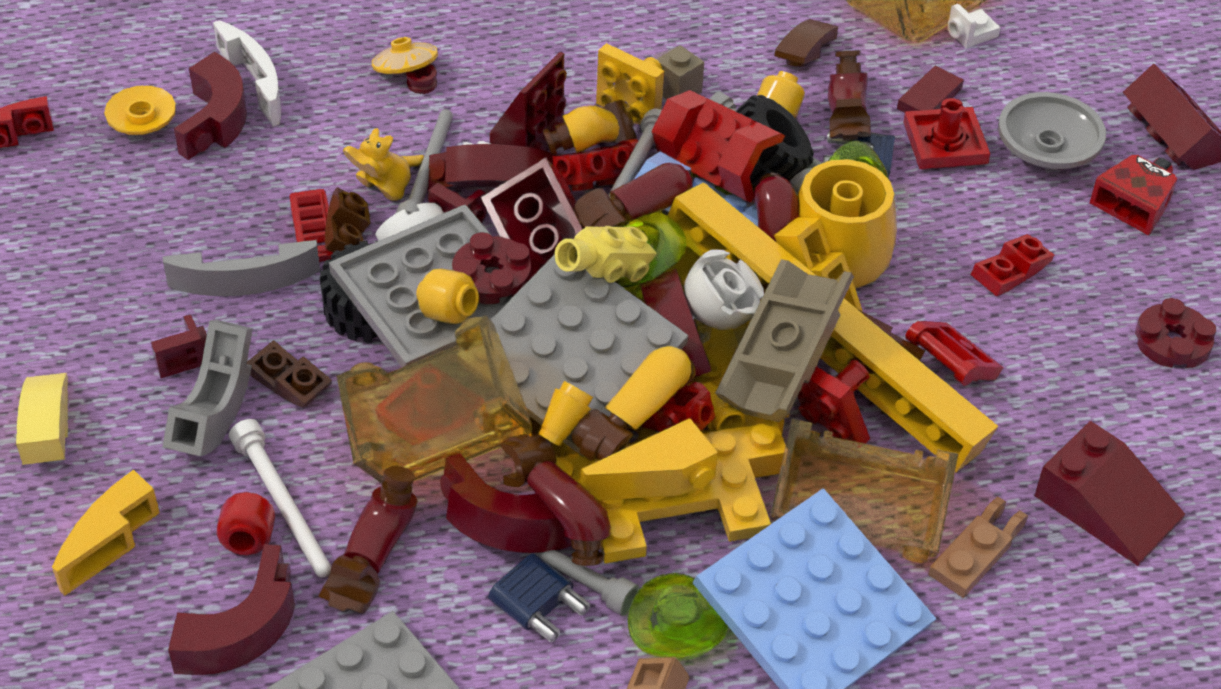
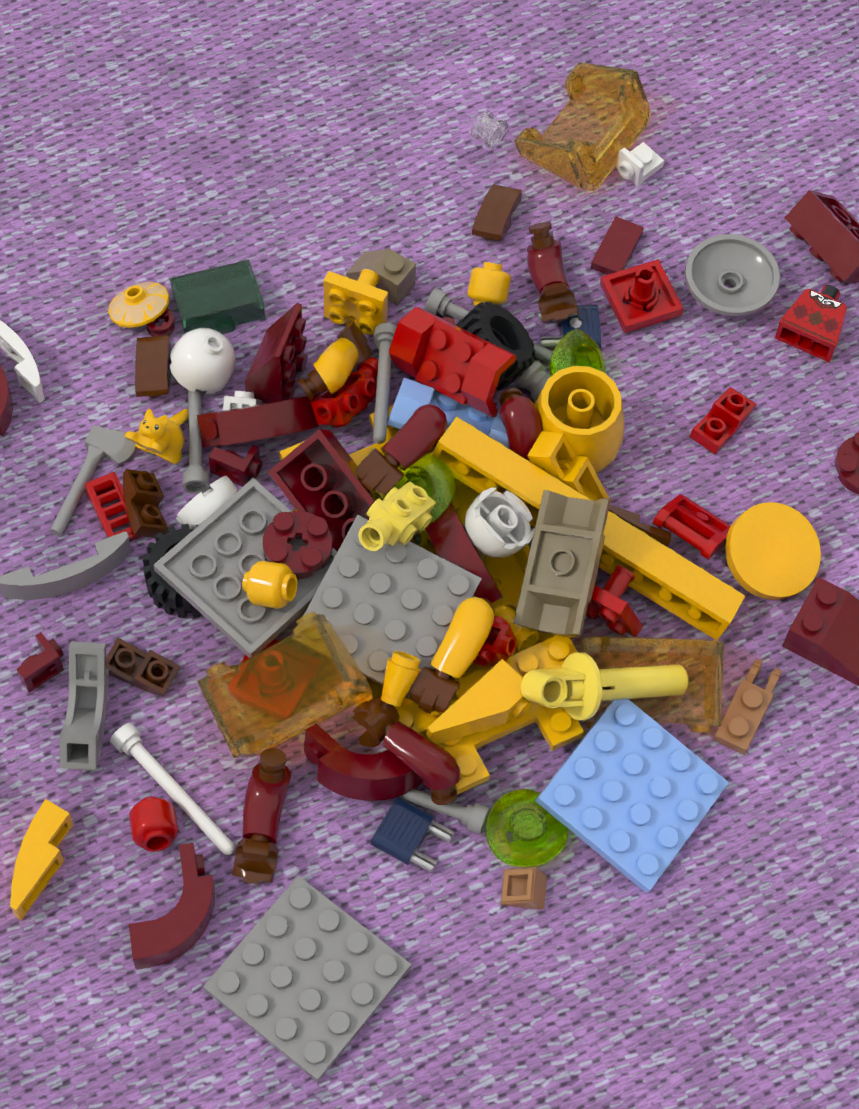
camera: 15 degrees left, 15 degrees up
(319, 169) = (100, 444): none -> light grey piece
(399, 110) = (152, 366): none -> reddish brown slope
(453, 110) = (203, 360): none -> white cylinder
(486, 66) = (218, 298): none -> clear green container
(774, 464) = (582, 686): none -> light yellow piece
(1041, 392) = (772, 551): none -> yellow piece

